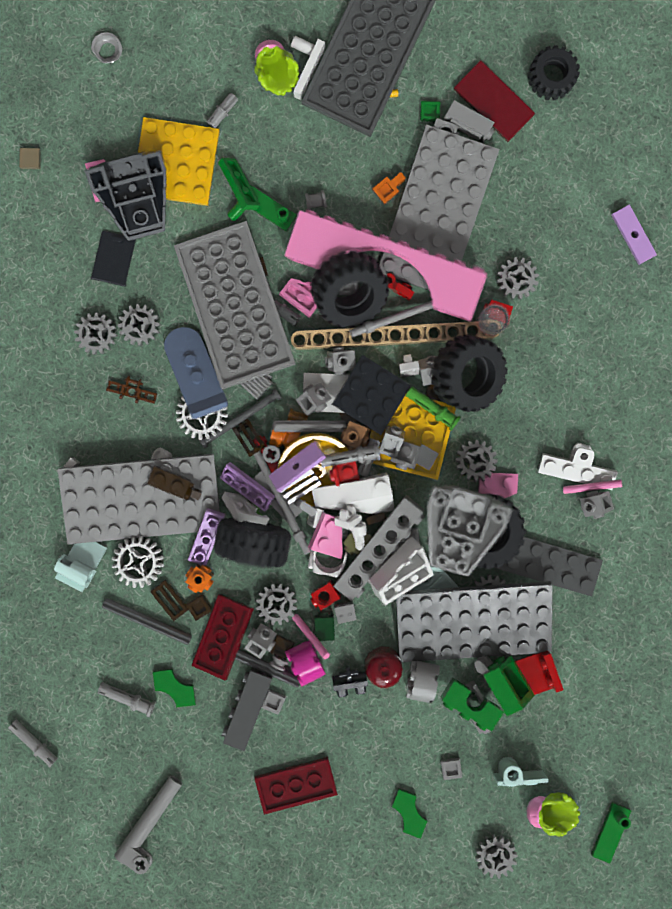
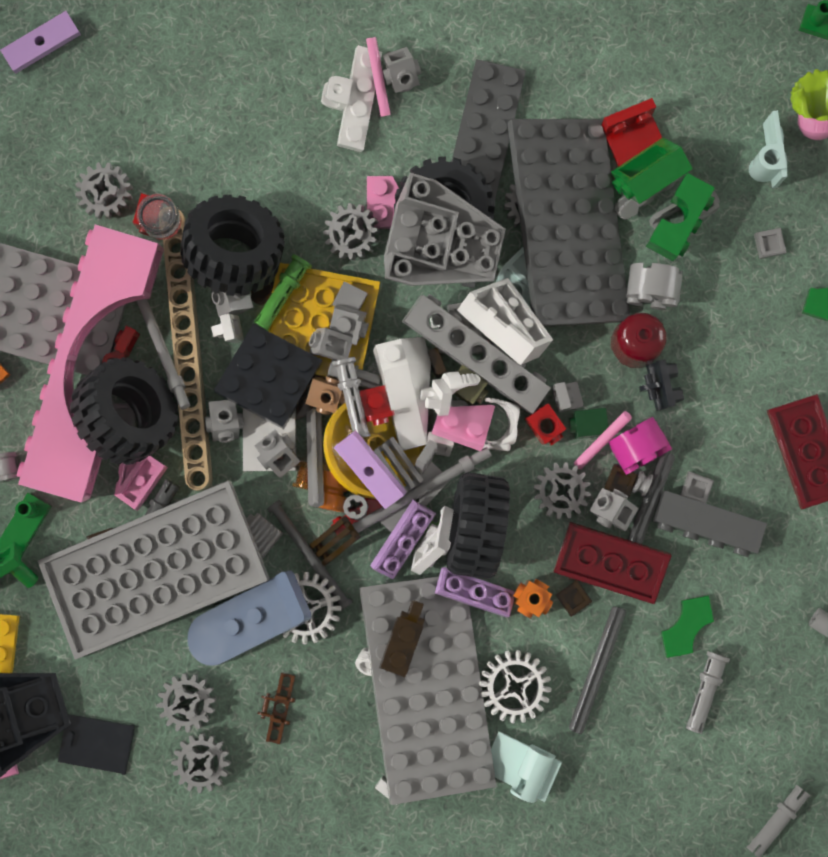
camera: 90 degrees left, 5 degrees down
(160, 587) = (549, 654): dark brown tile -> none

